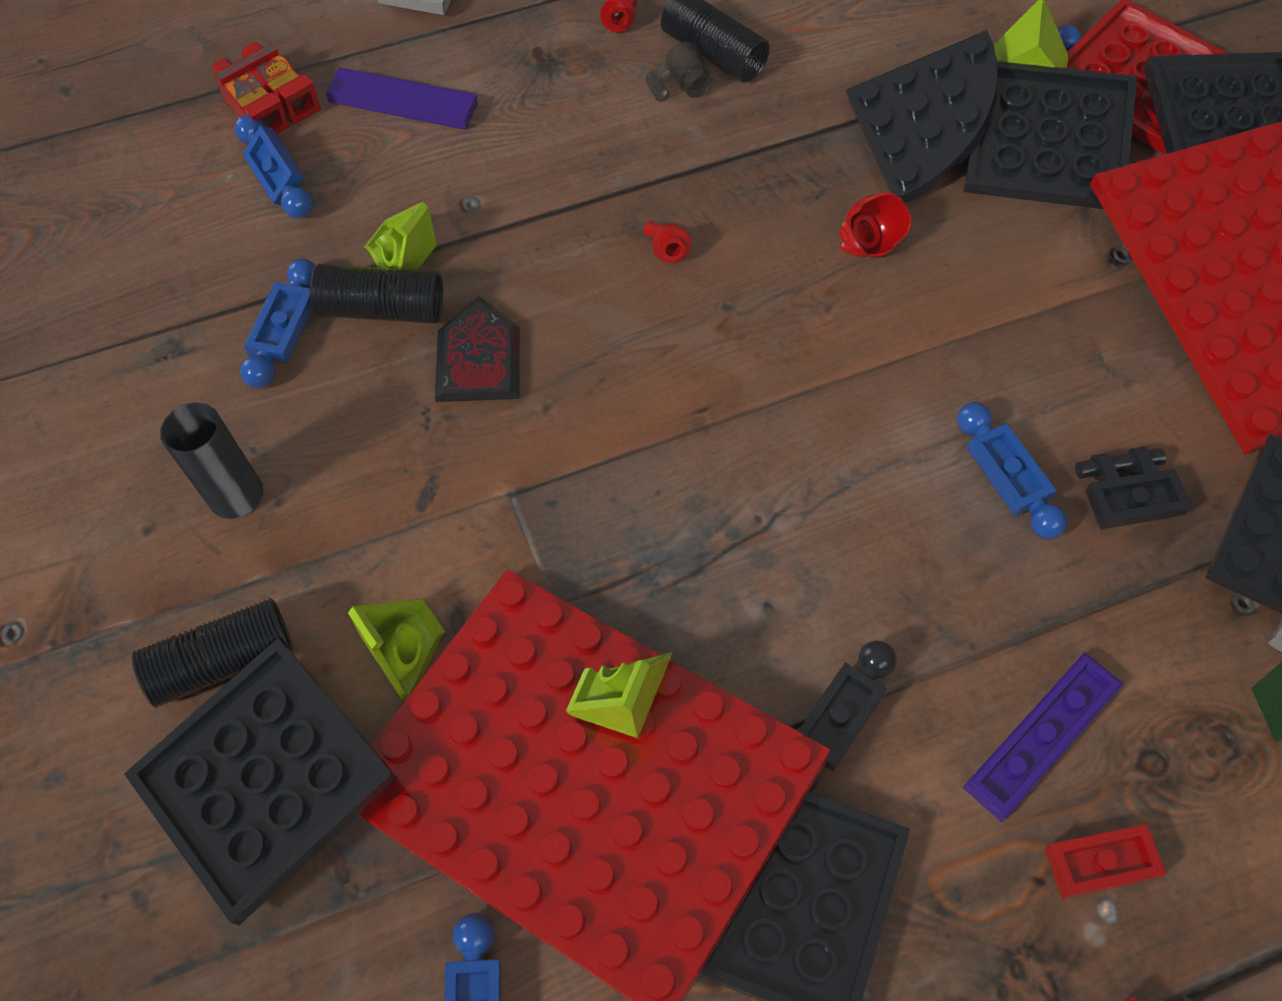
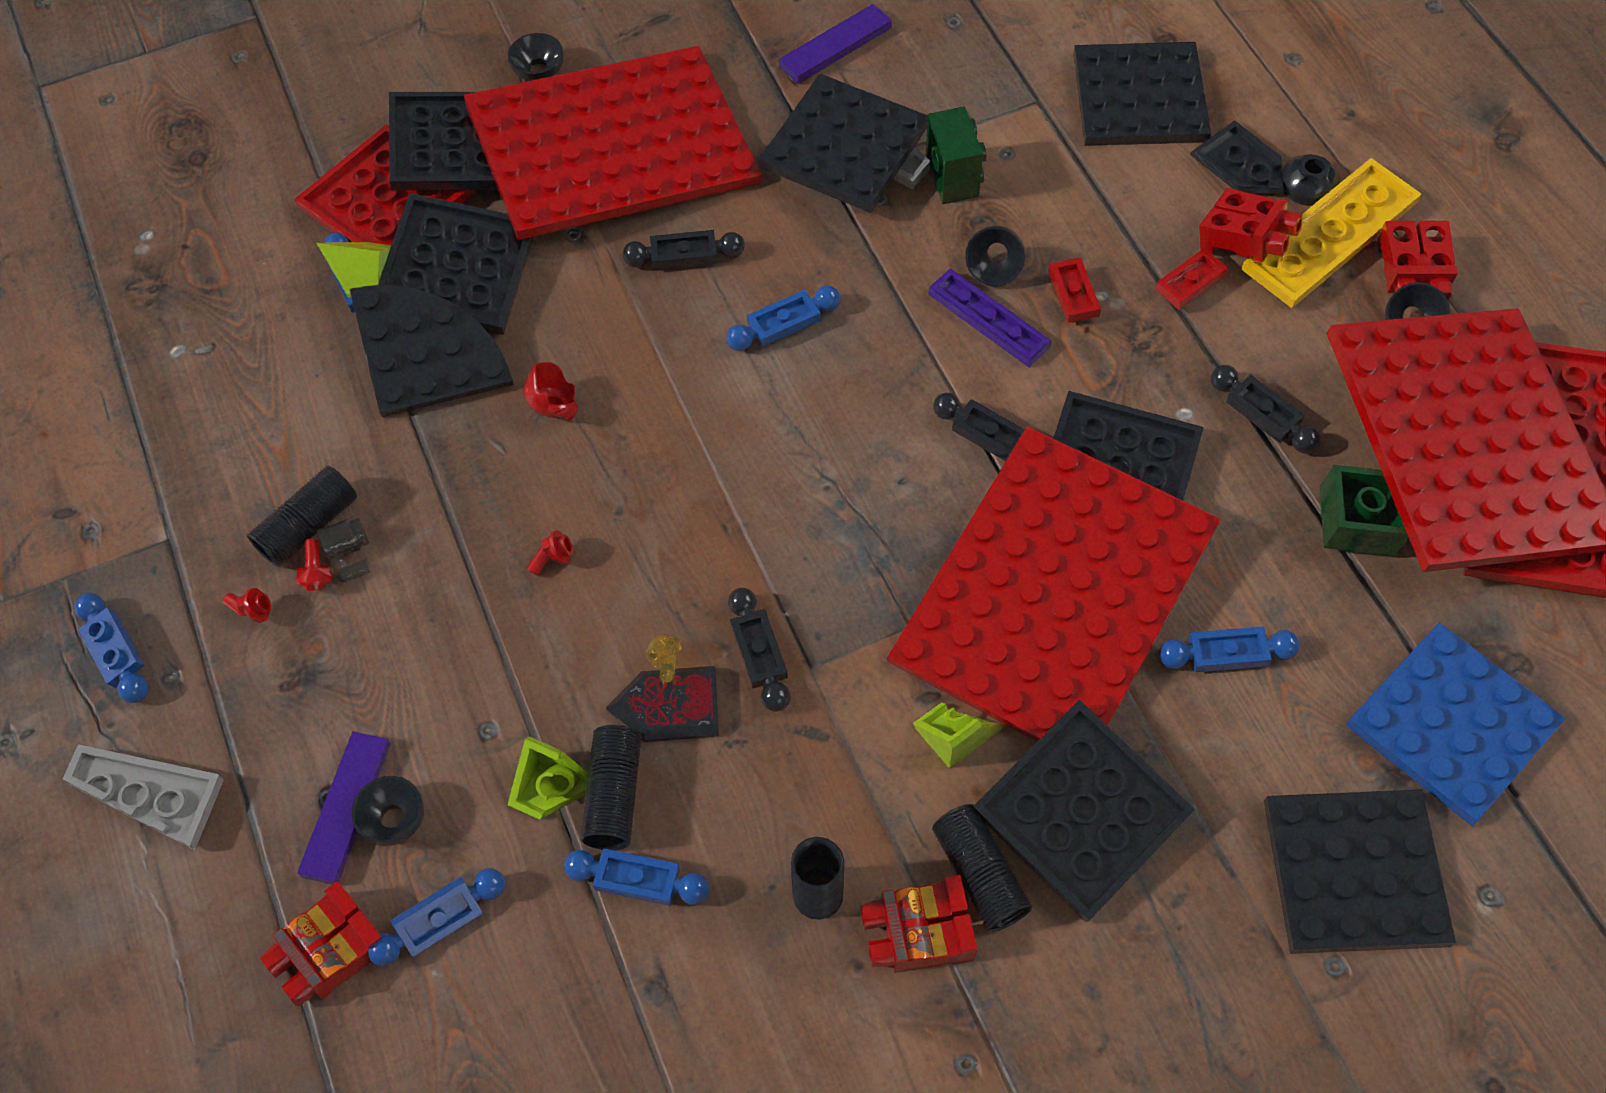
camera: 90 degrees left, 0 degrees up
(160, 585) = (922, 926): none -> red hips
(380, 113) = (377, 799): none -> black piece
(531, 434) = (759, 649): none -> black plate
(535, 341) = (662, 653): none -> clear yellow plate
(619, 695) = (998, 550): lime slope -> none
(648, 50) = (313, 575): none -> red plate
(1109, 361) = (683, 249): none -> black plate
(1133, 498) = (806, 247): black plate -> none
(1136, 732) = (984, 267): none -> black piece

